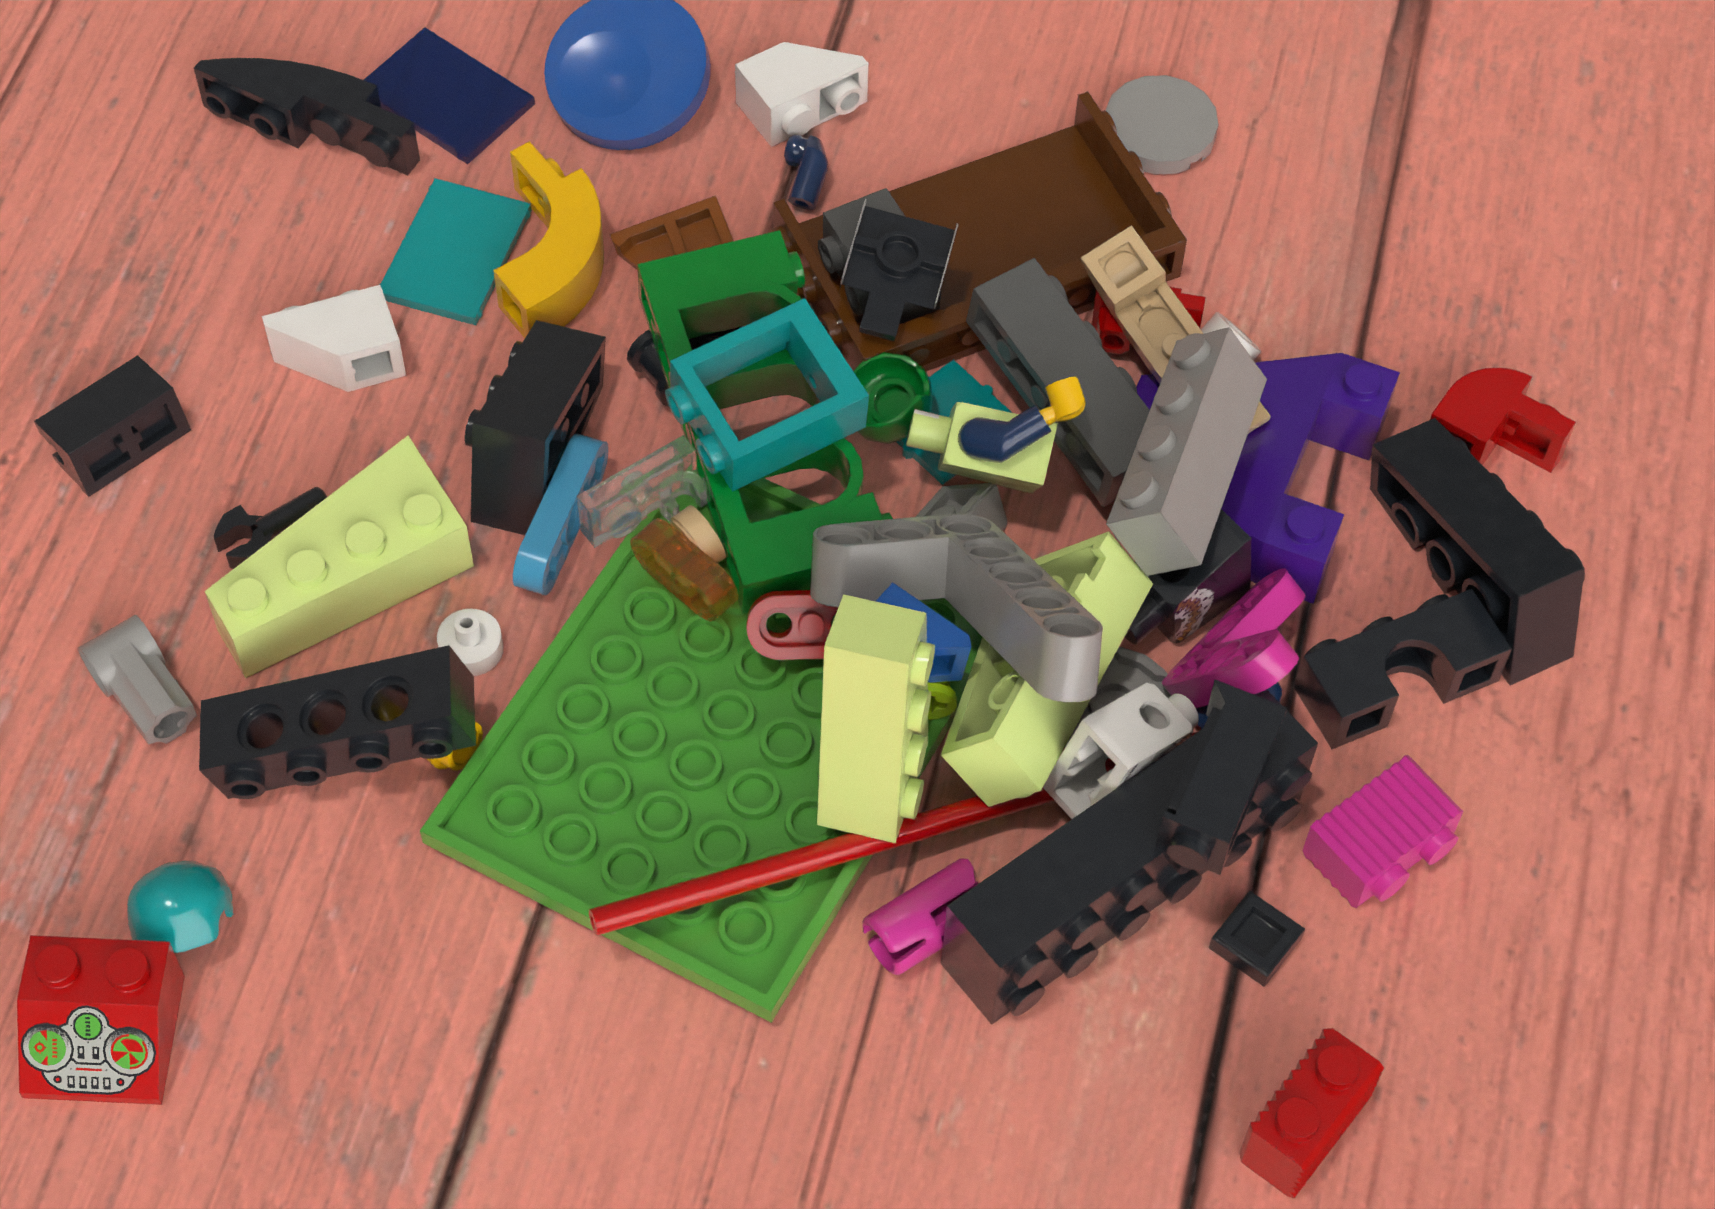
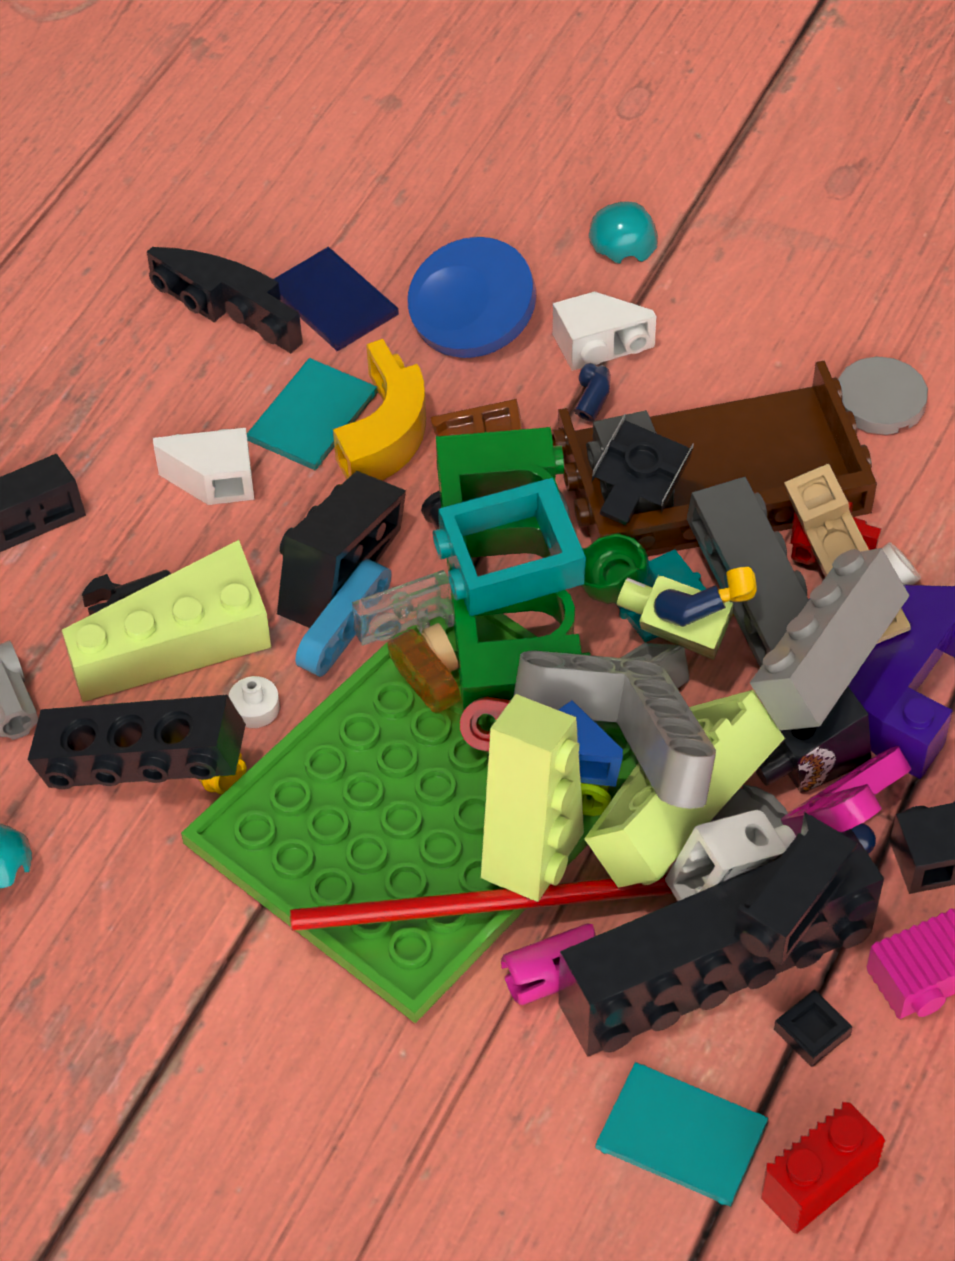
camera: 15 degrees right, 5 degrees down
(1129, 1100) = (682, 1133): none -> teal piece

